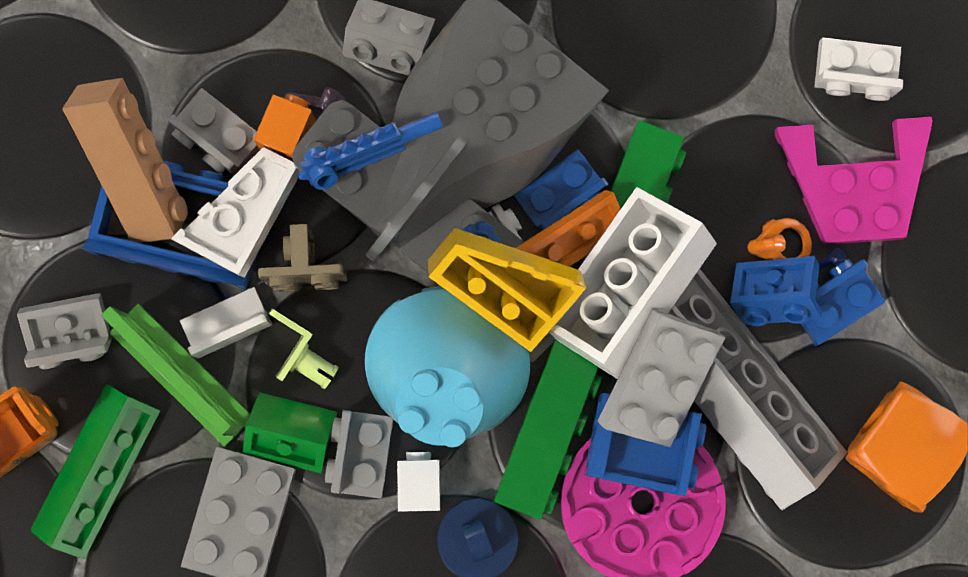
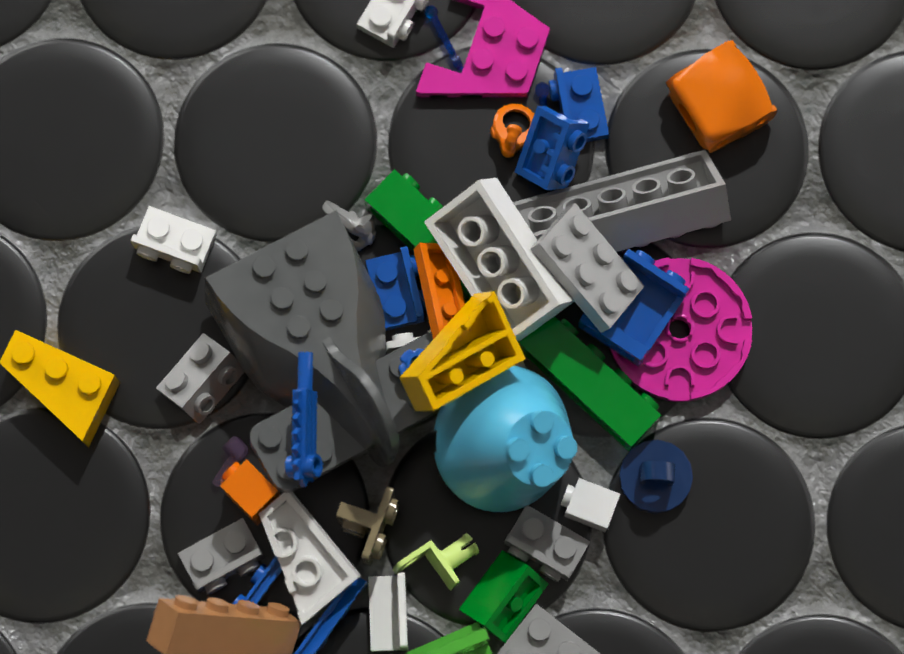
camera: 60 degrees left, 5 degrees down
(609, 124) = (361, 227): none -> light grey piece
(868, 109) = (432, 12): none -> clear blue hinge

